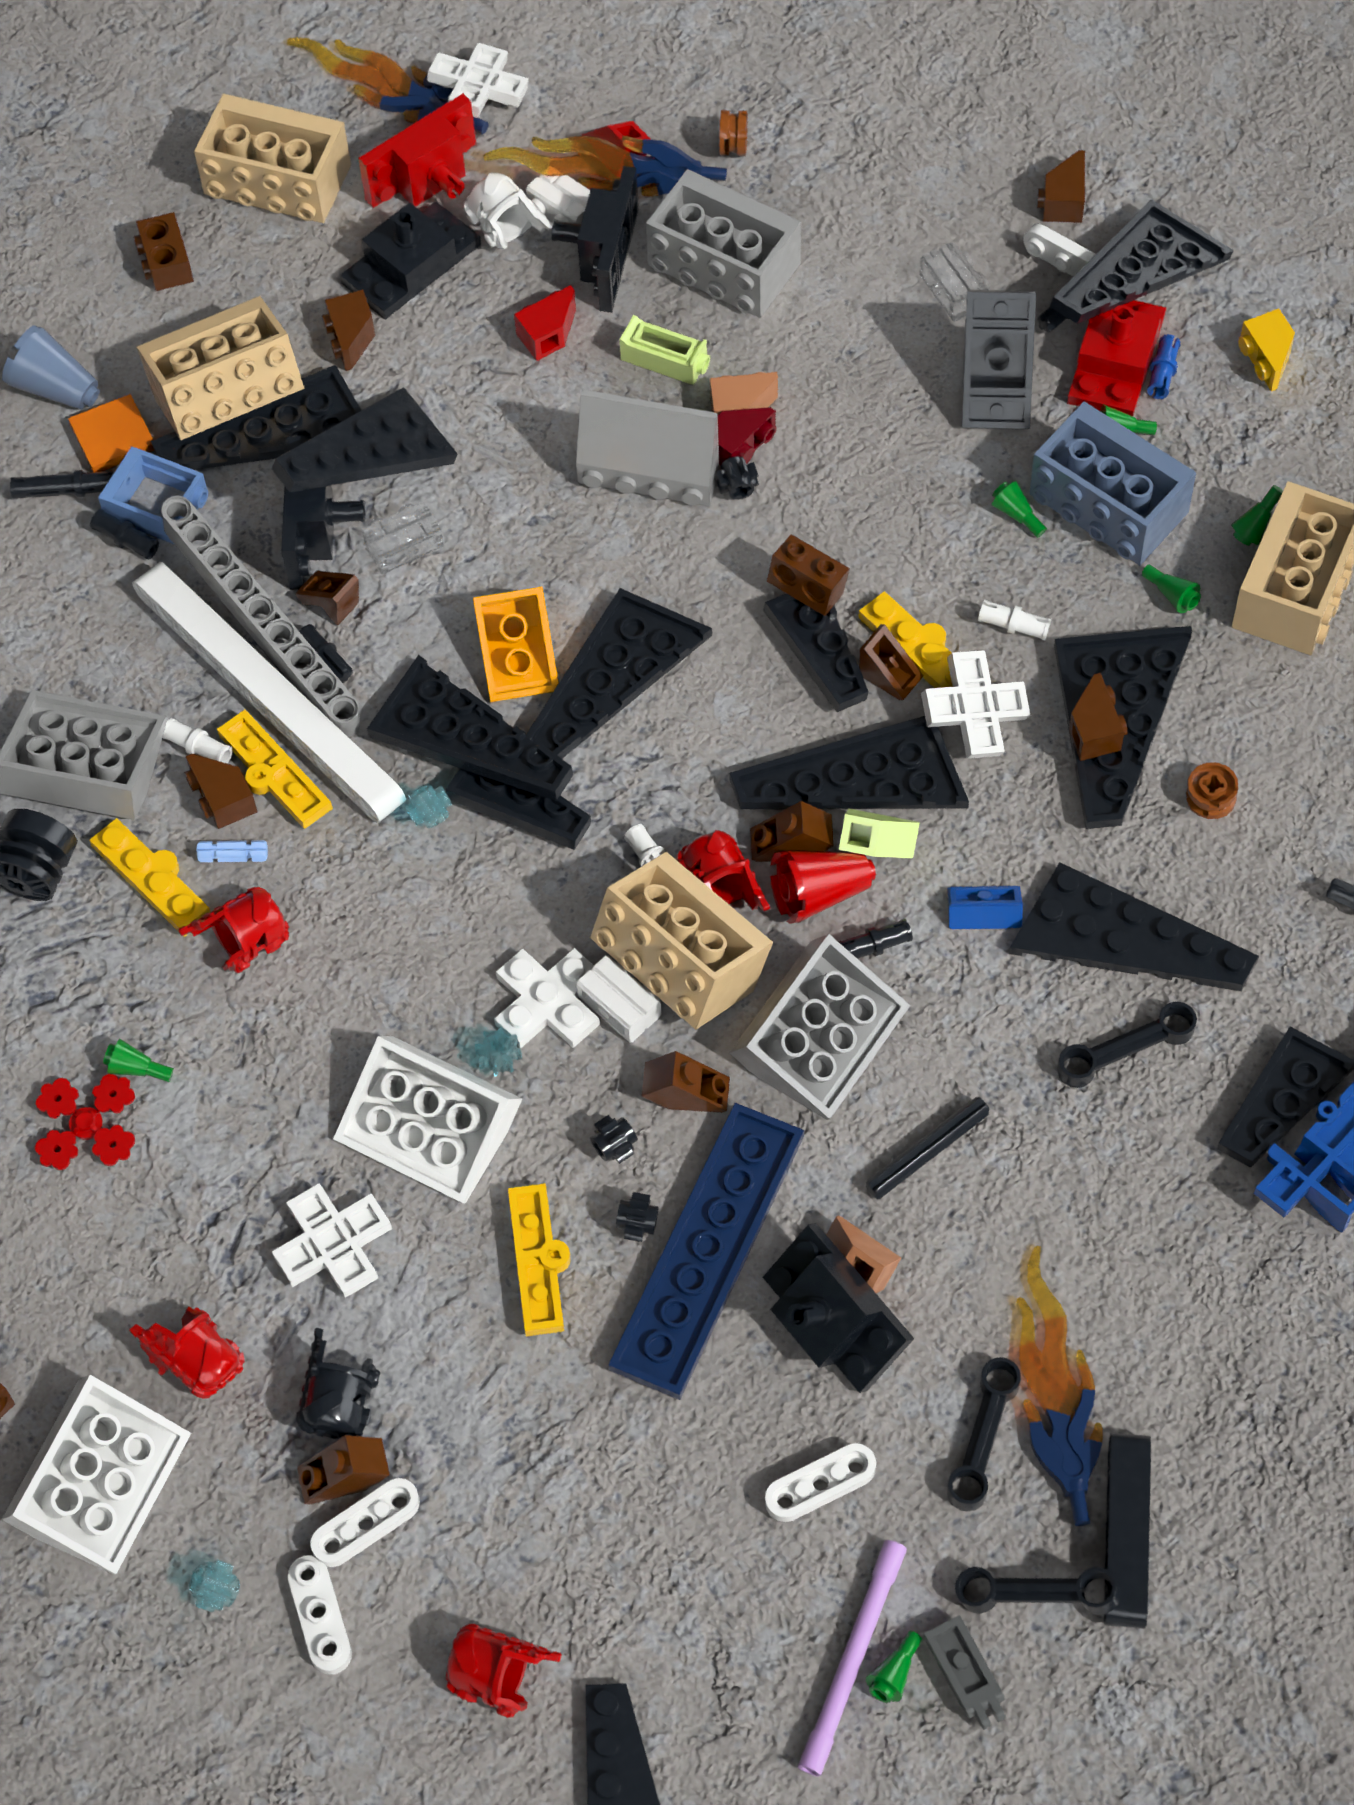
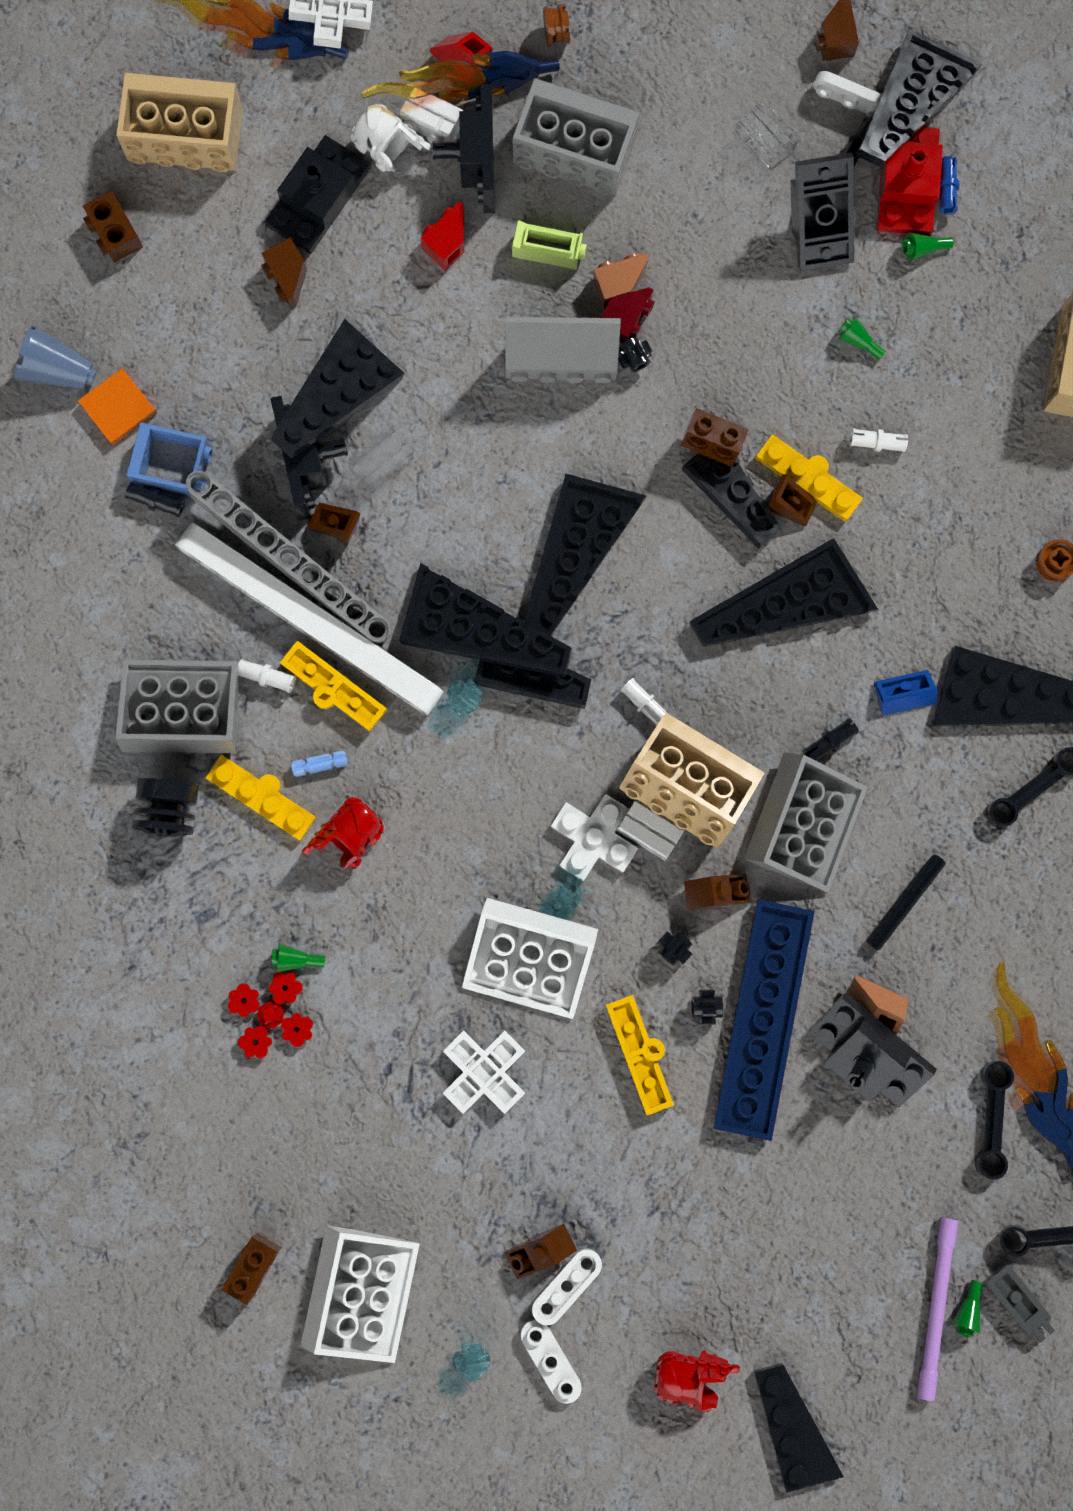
camera: 20 degrees left, 20 degrees up
(55, 485) = (102, 460): black pin -> none
(193, 1354) = (411, 1189): red helmet -> none
(220, 367) = (194, 336): tan brick -> none
(222, 788) = (298, 713): reddish brown slope -> none
(264, 431) = (261, 367): black wing -> none
(327, 652) = (346, 576): black axle -> none
(331, 1395) = (521, 1200): black helmet -> none
(421, 157) = (306, 99): red brick -> none
(516, 644) = (495, 539): light orange slope -> none
(722, 868) = (703, 708): red helmet -> none
(793, 829) = (749, 664): reddish brown slope -> none
(817, 880) = (779, 703): red cone -> none
(831, 1469) = (899, 1181): white plate -> none
(878, 835) = (814, 653): yellowish green slope -> none
(975, 704) = (866, 524): white plate -> none
(1095, 723) = (963, 523): reddish brown slope -> none
(1111, 483) = (933, 307): sand blue brick -> none
(1142, 675) = (968, 497): black wing -> none
(1181, 593) = (999, 390): green cone -> none
(1253, 523) = (1045, 321): green cone -> none
(1268, 345) = (1028, 152): yellow slope -> none

